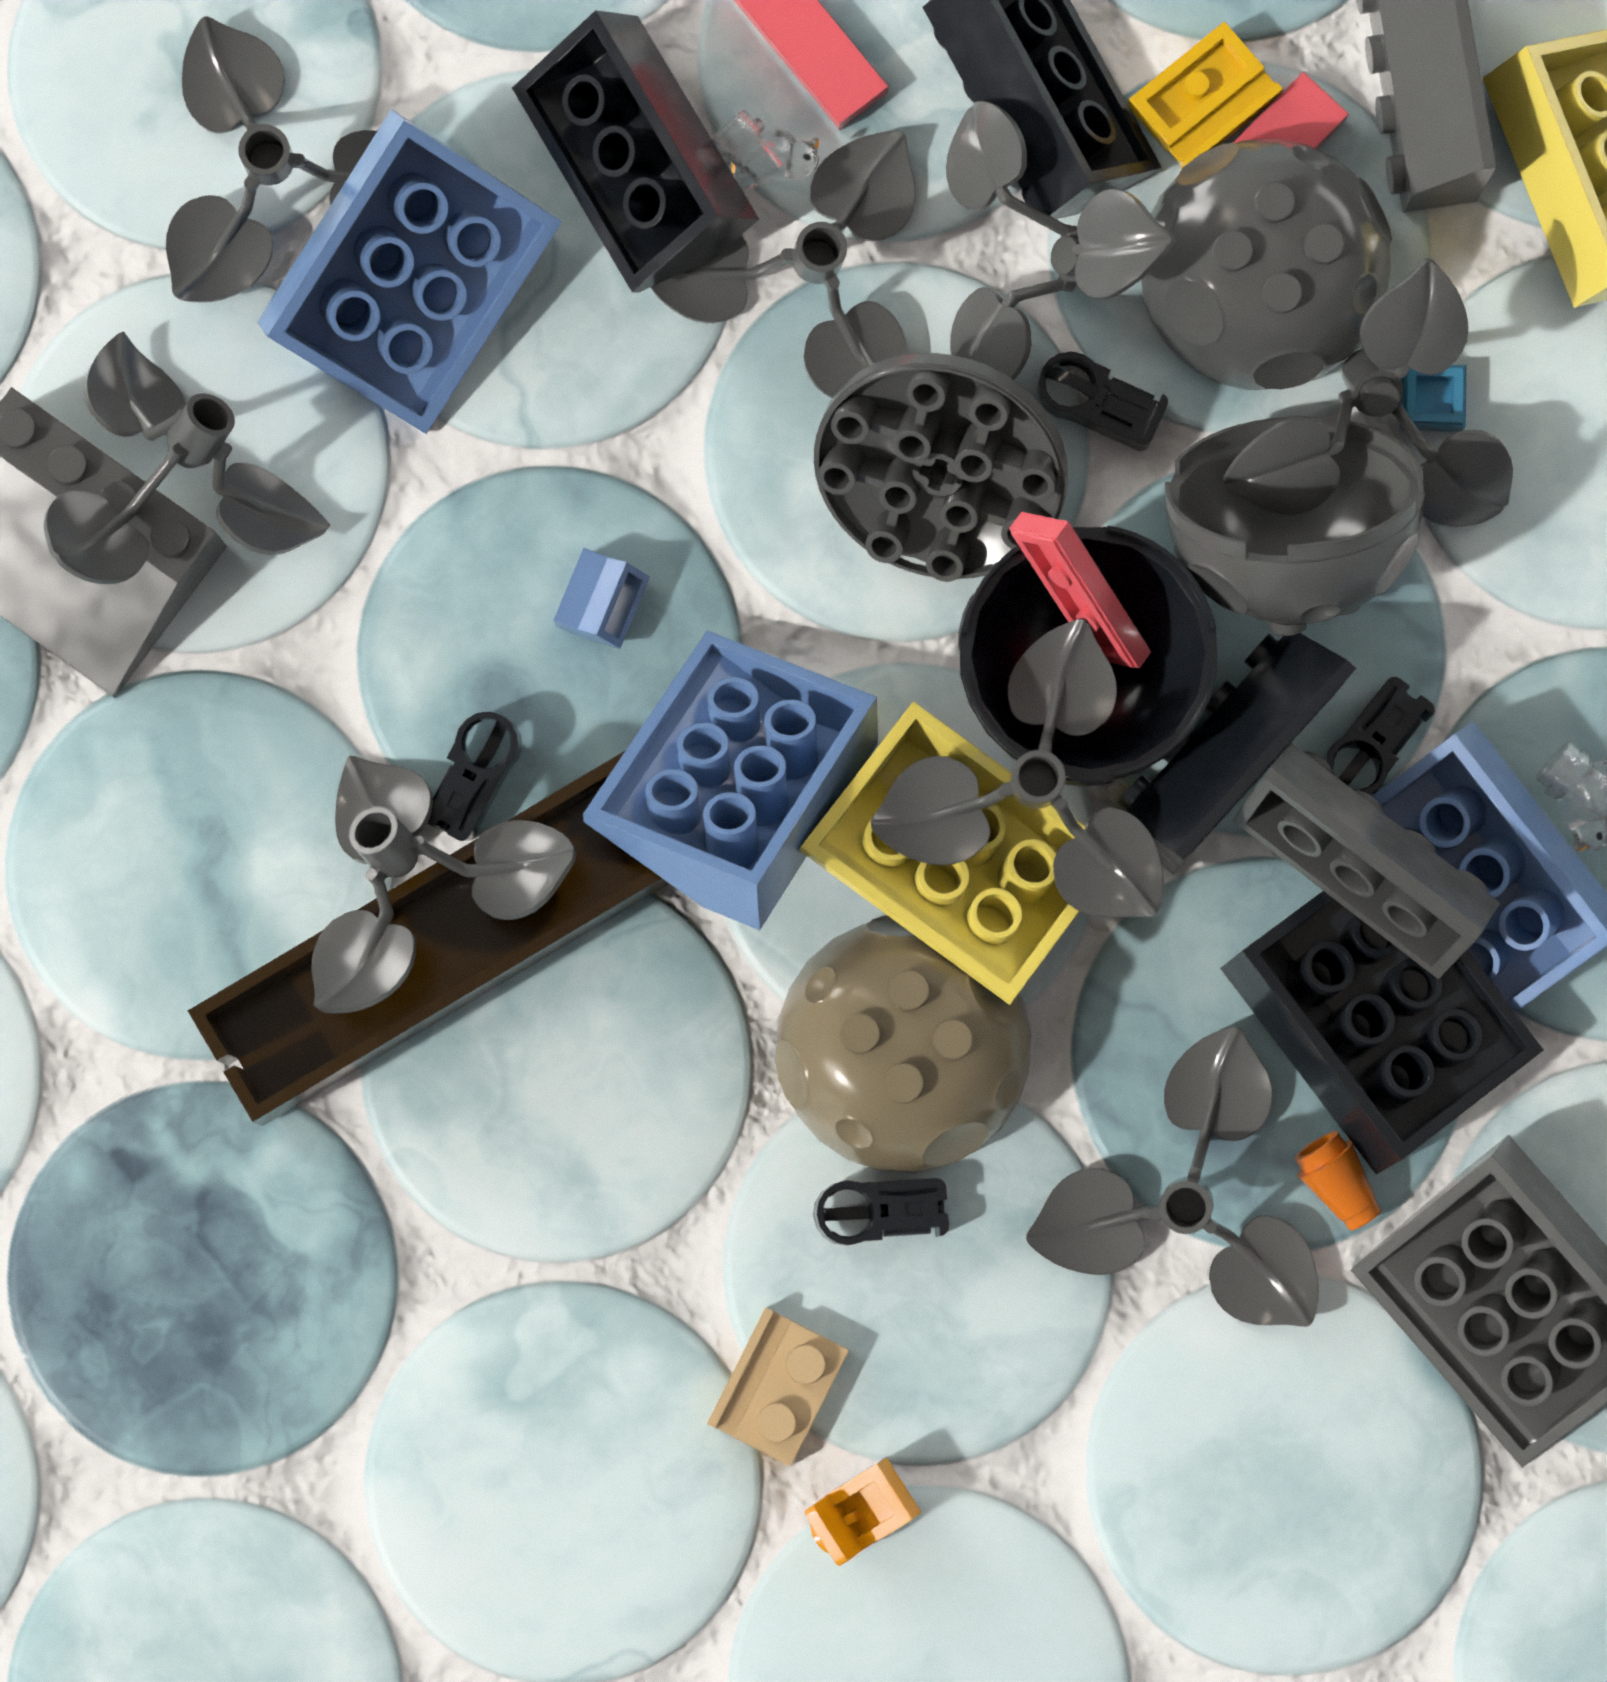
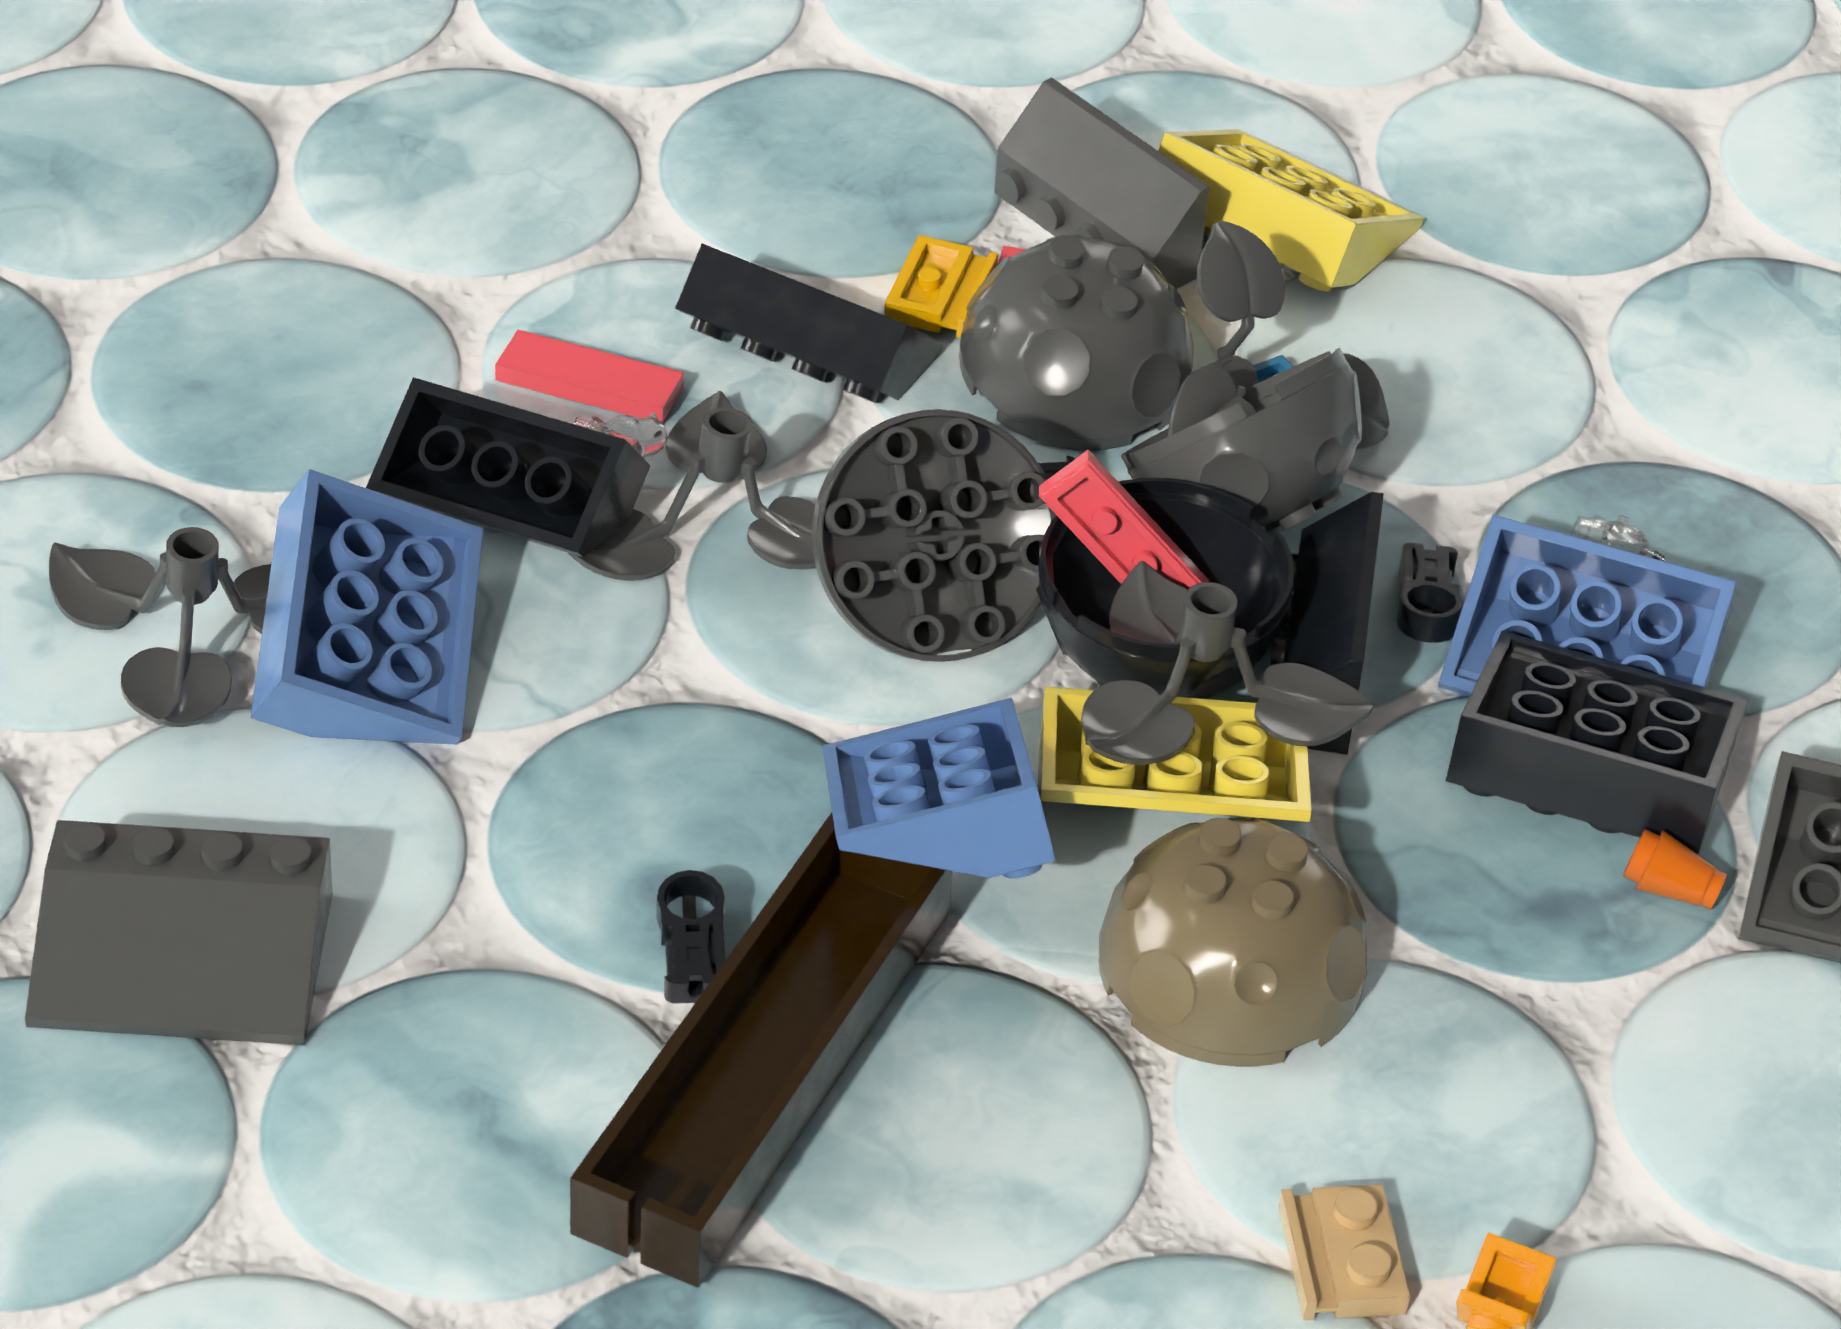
camera: 40 degrees left, 40 degrees down
(135, 396) = (270, 754): dark grey plant -> none
(377, 824) = (726, 1038): dark grey plant -> none
(601, 598) = (708, 772): medium blue piece -> none
(892, 1207) = (1324, 1067): black piece -> none
(1091, 1218) = (1510, 1008): dark grey plant -> none
(1103, 254) = (959, 315): dark grey plant -> none
(1367, 860) = (1505, 607): dark grey slope -> none

